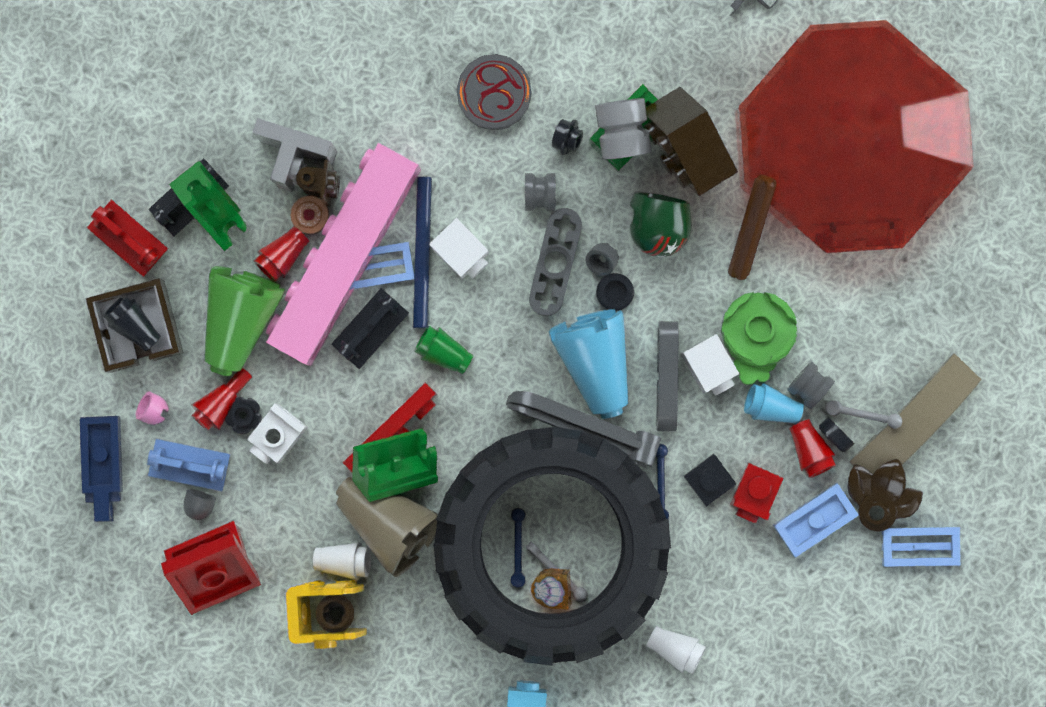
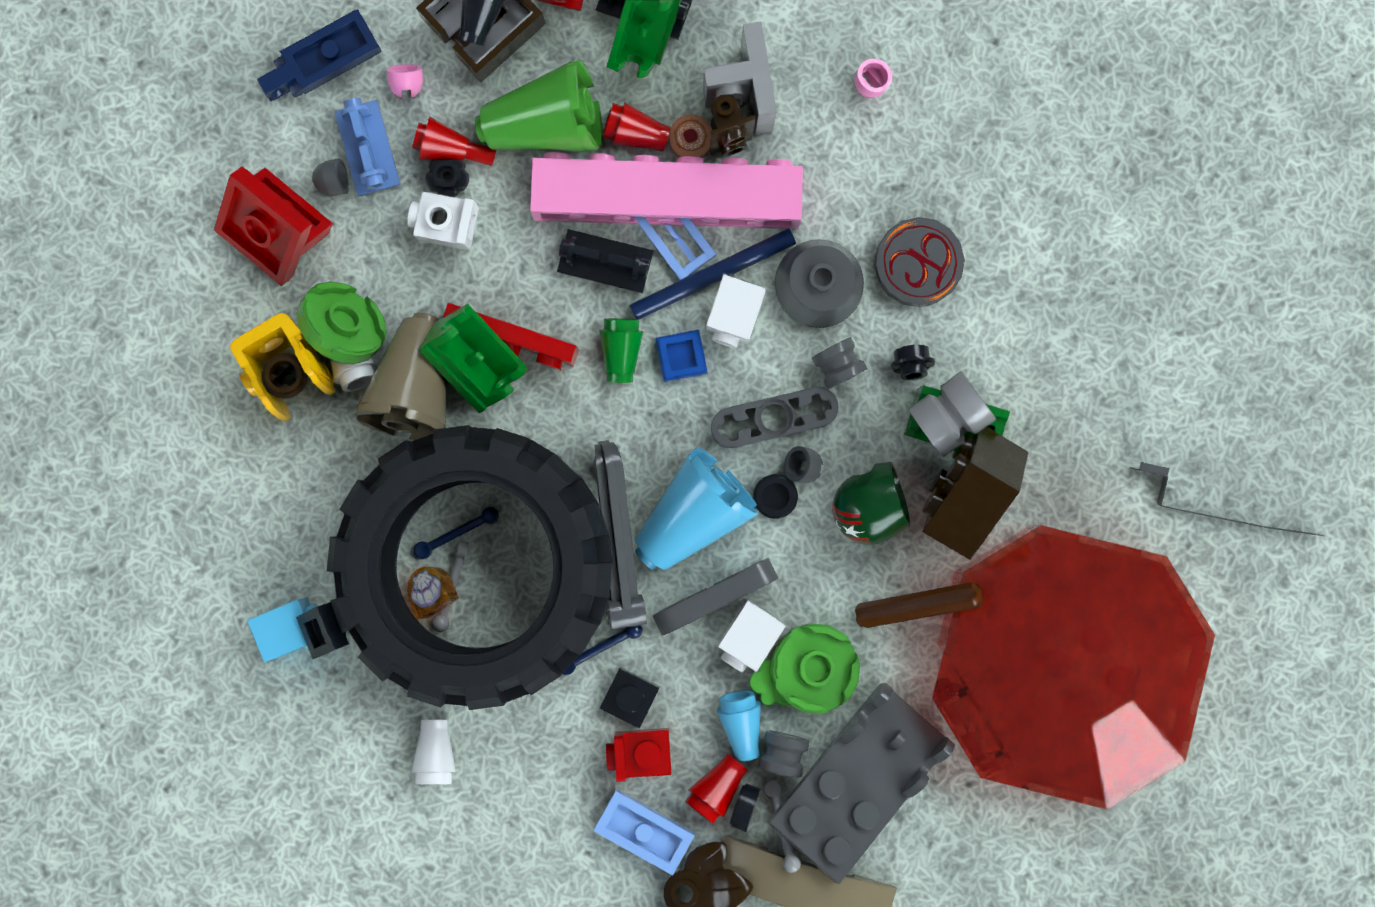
camera: 65 degrees right, 0 degrees up
(315, 551) = (341, 323): none -> bright green tile
(336, 49) = (878, 75): none -> bright pink hinge
(471, 175) = (819, 283): none -> dark grey cone
(472, 308) = (681, 355): none -> blue tile
(542, 681) = (321, 630): none -> black plate
(861, 339) = (860, 782): none -> dark grey hinge

